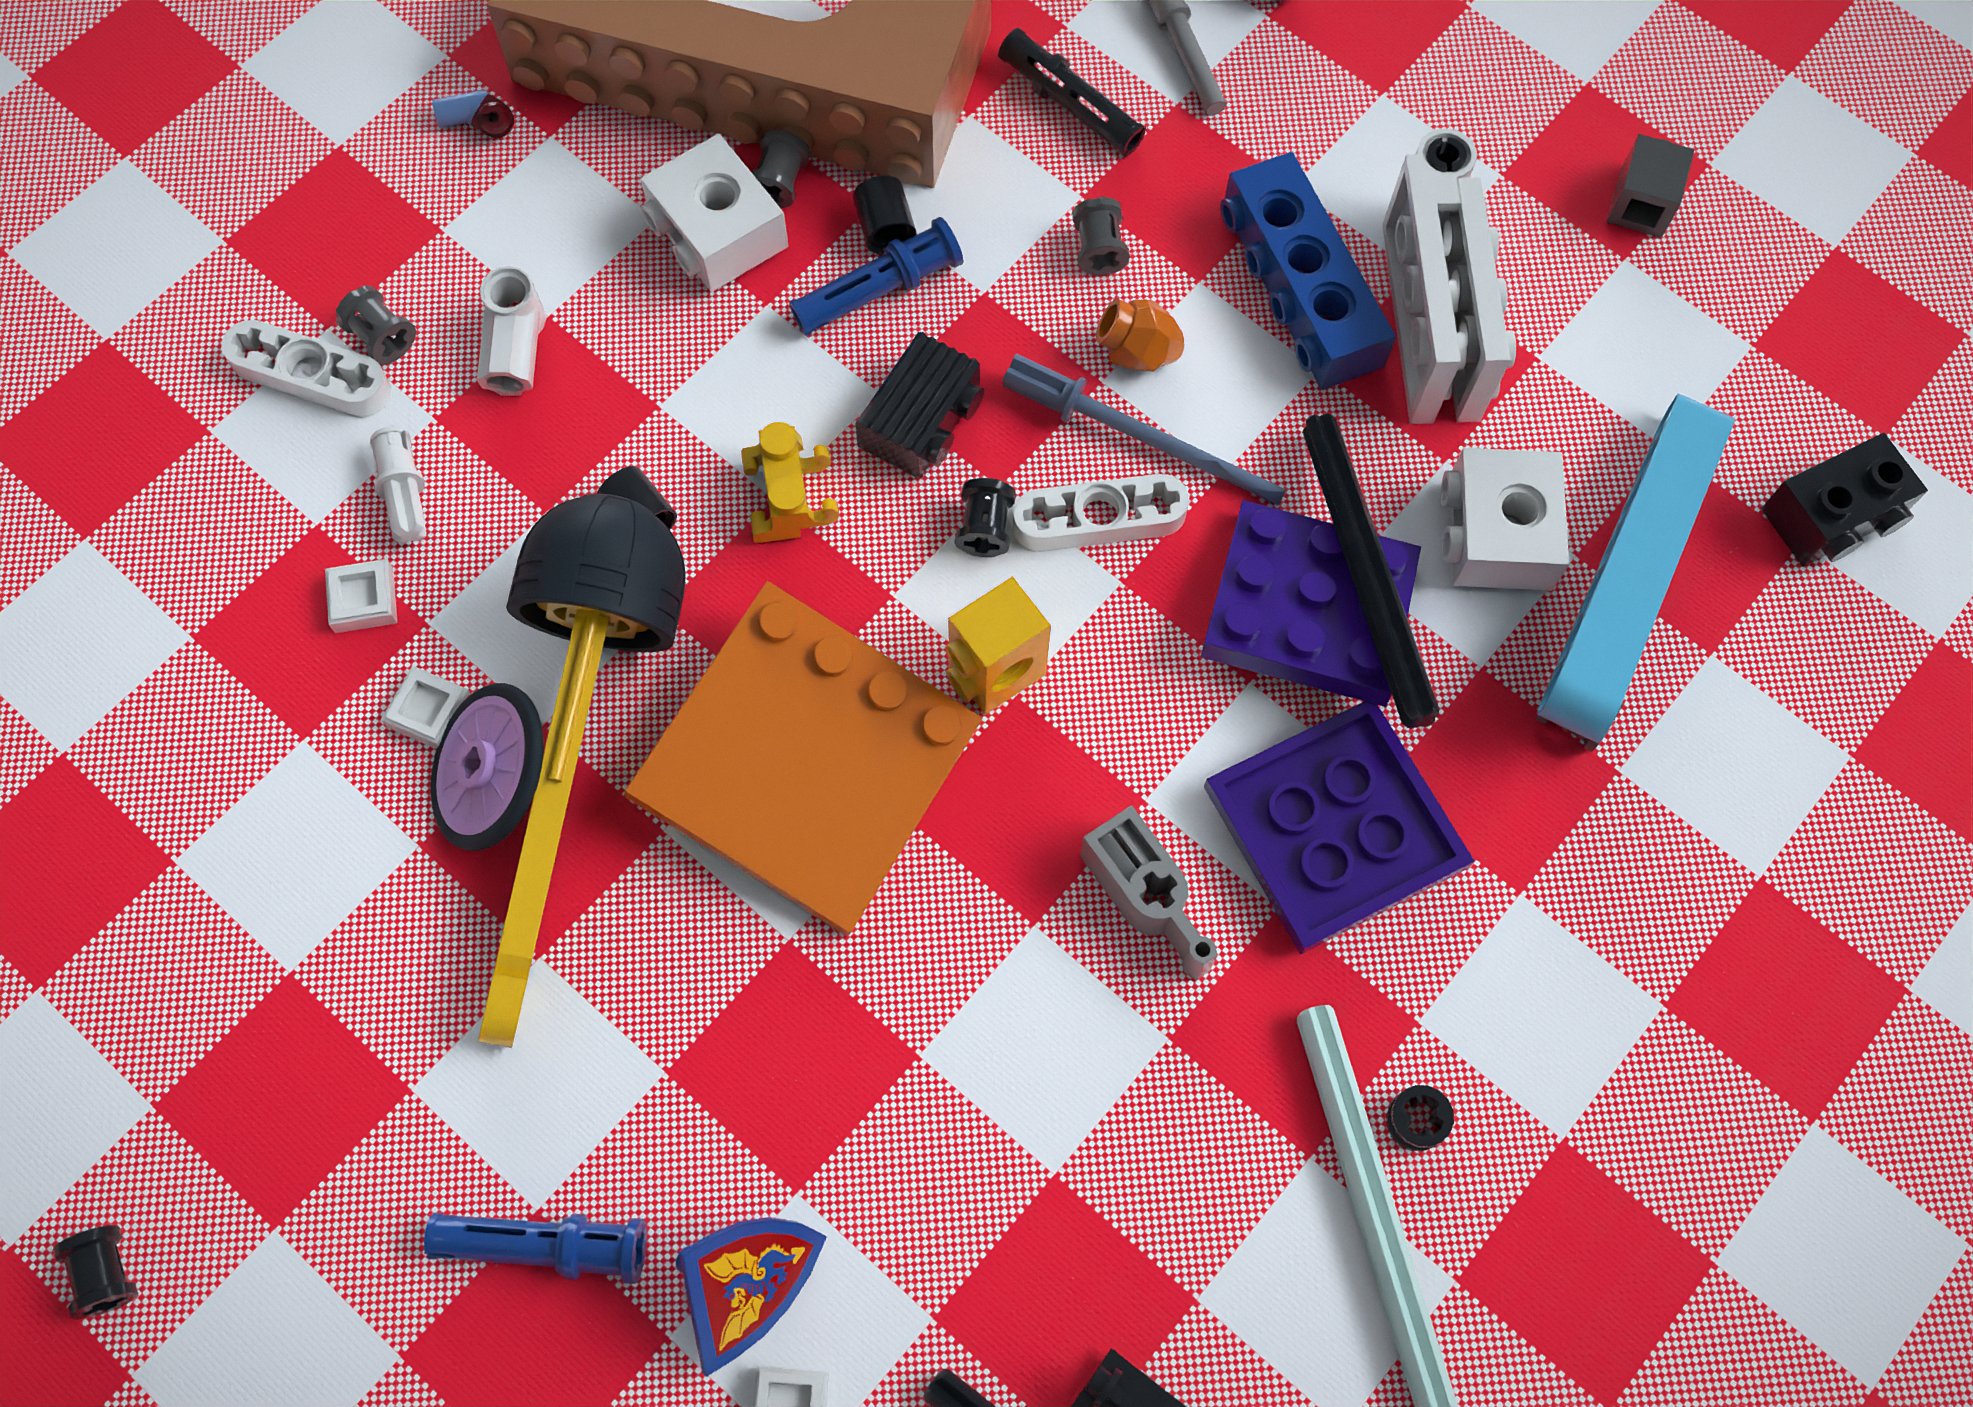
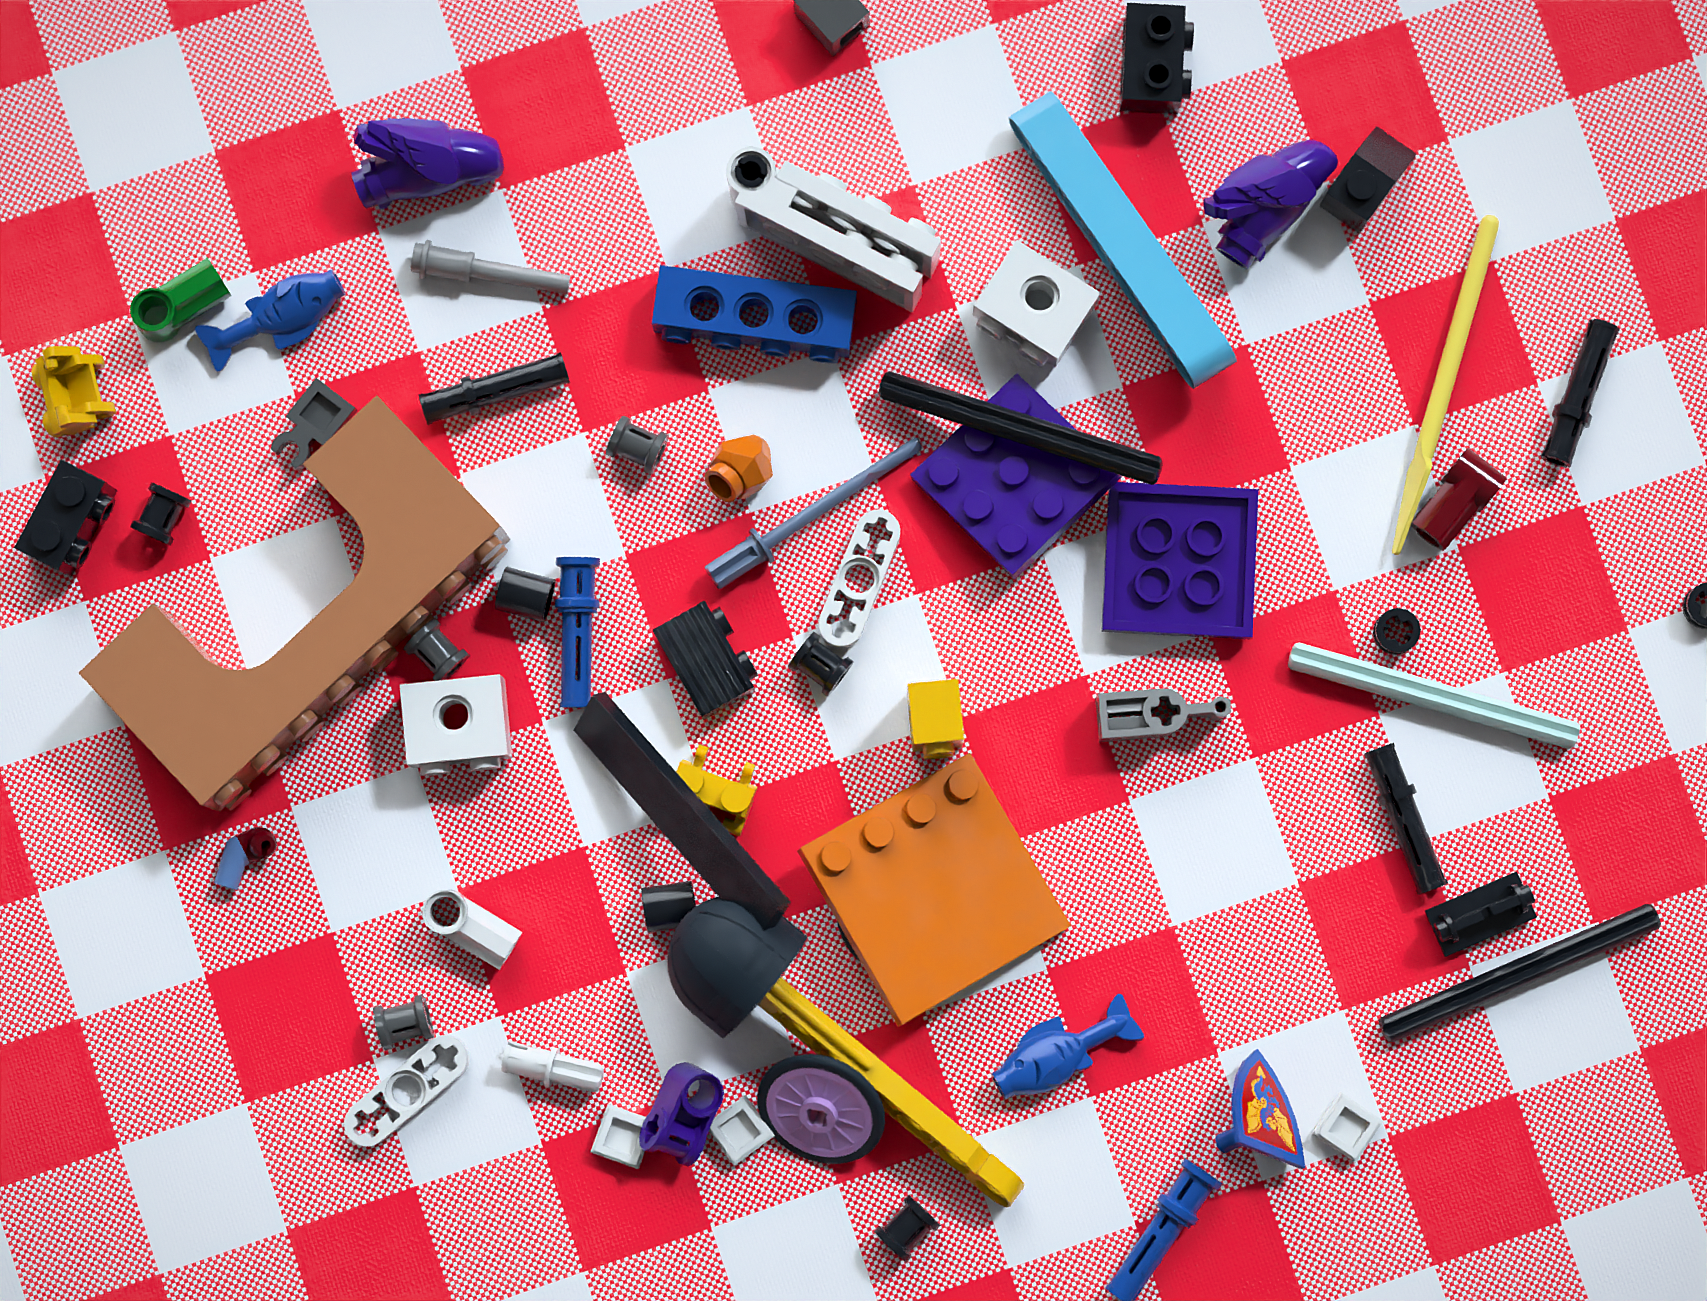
camera: 55 degrees left, 15 degrees up
(396, 940) = (907, 1228): none -> black bush
(399, 631) = (681, 1116): none -> dark purple piece
(688, 996) = (1051, 1056): none -> blue animal
(733, 447) = (679, 811): none -> black tile
(1208, 1256) = (1405, 818): none -> black pin
(1640, 1100) = (1464, 491): none -> dark red piece
(1753, 1004) = (1445, 378): none -> light yellow piece
(1794, 692) = (1267, 198): none -> dark purple animal
(1818, 1180) = (1574, 409): none -> black pin
(1889, 789) = (1367, 179): none -> black slope

